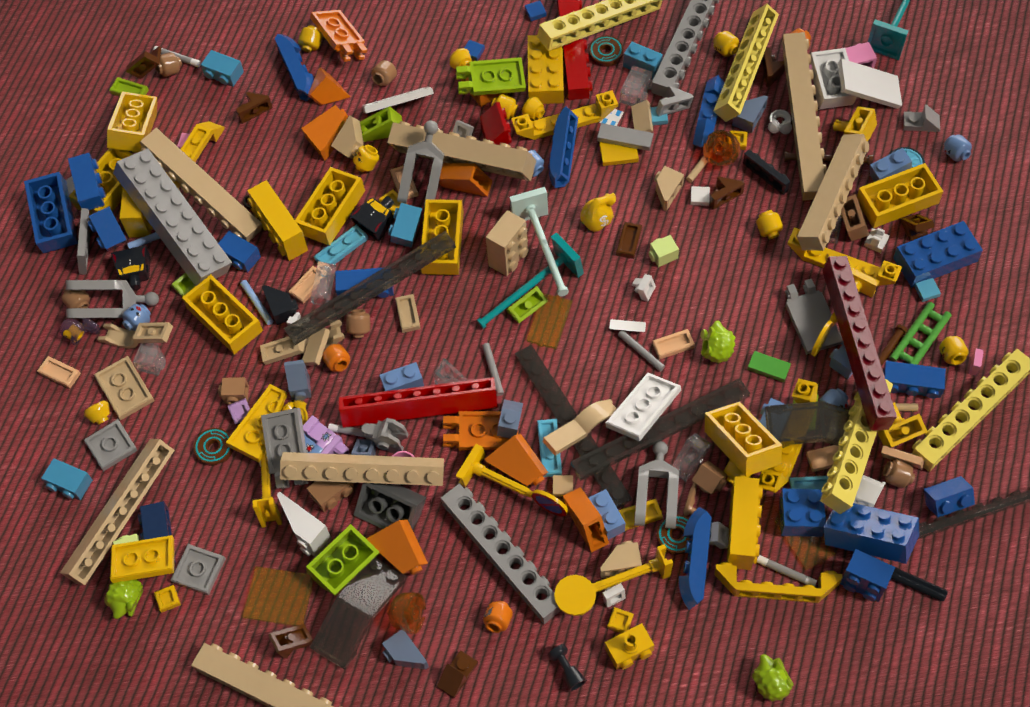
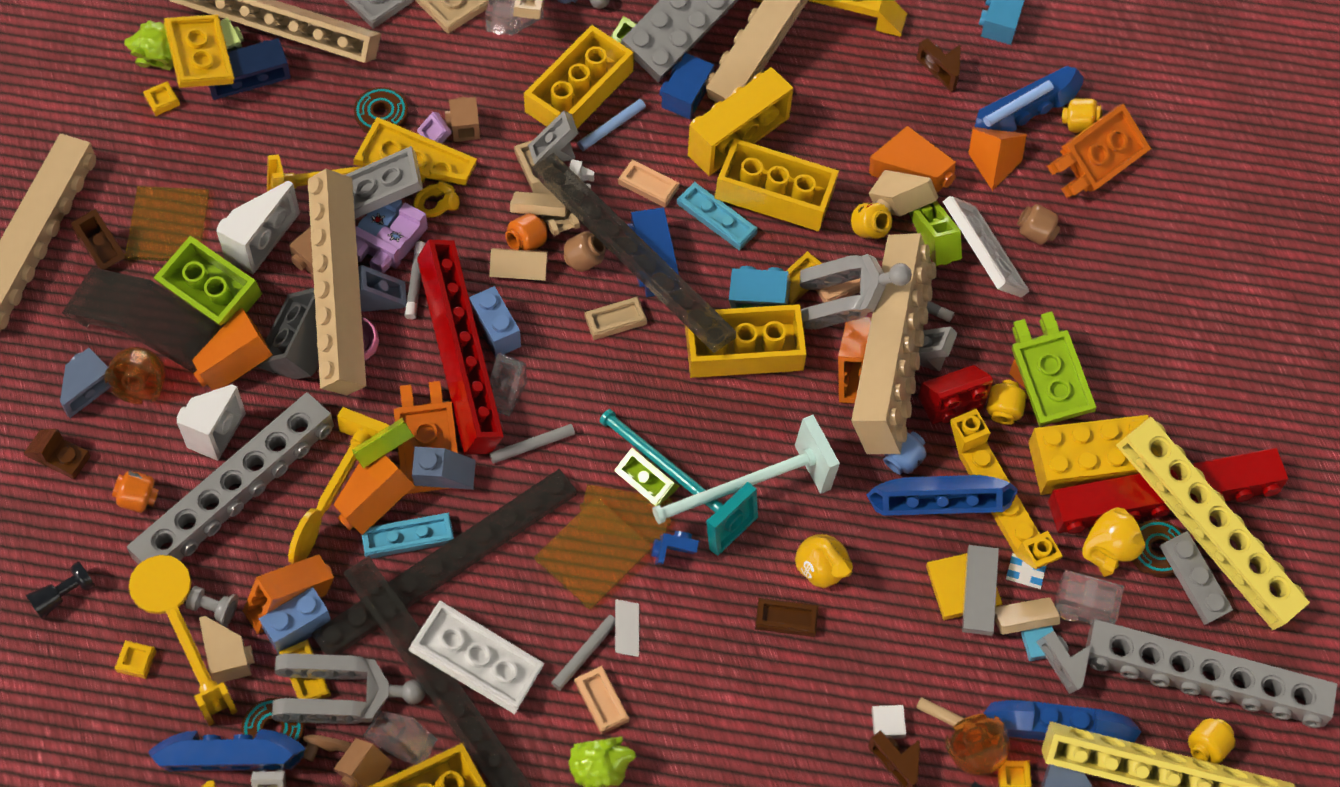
camera: 75 degrees right, 0 degrees up
(198, 569) = (202, 125): light grey tile -> none
(270, 330) = (555, 139): none -> light grey slope
(280, 304) = (605, 150): black slope -> none
(298, 380) = (480, 190): sand blue slope -> none
(299, 66) = (1018, 103): none -> light blue bar
(323, 283) = (641, 194): clear brick -> none
(358, 365) = (518, 264): none -> tan tile
(374, 217) = (769, 246): black torso -> none
(386, 434) = (401, 309): light grey hinge -> none
(457, 561) = (211, 420): none -> white slope
(460, 57) = (1087, 328): yellow cone -> none
(475, 49) = (1115, 347): blue tile -> none
(489, 448) = (382, 443): none -> lime slope
(507, 243) = (734, 425): tan brick -> none
(534, 108) = (1011, 445): yellow cone -> none
(535, 10) = (1217, 430): blue tile -> none
(562, 484) = (344, 557): tan tile -> none
(575, 340) = (593, 553): none -> clear yellow piece
(577, 296) = (679, 542): none -> blue bracket
(579, 427) = (435, 568): tan piece -> none
(593, 559) = (223, 609): none -> light grey piece
(604, 63) = (1112, 540): none -> yellow piece
(613, 595) = (169, 643): white tile -> none
(627, 34) = (1196, 578): none -> light grey plate
(629, 647) = (90, 672): yellow brick -> none
(642, 57) = (1146, 601): dark azure brick -> none
(644, 286) = (695, 645): white tile -> none
(663, 251) = (768, 668): yellowish green brick -> none
(668, 185) = (893, 665): tan slope -> none

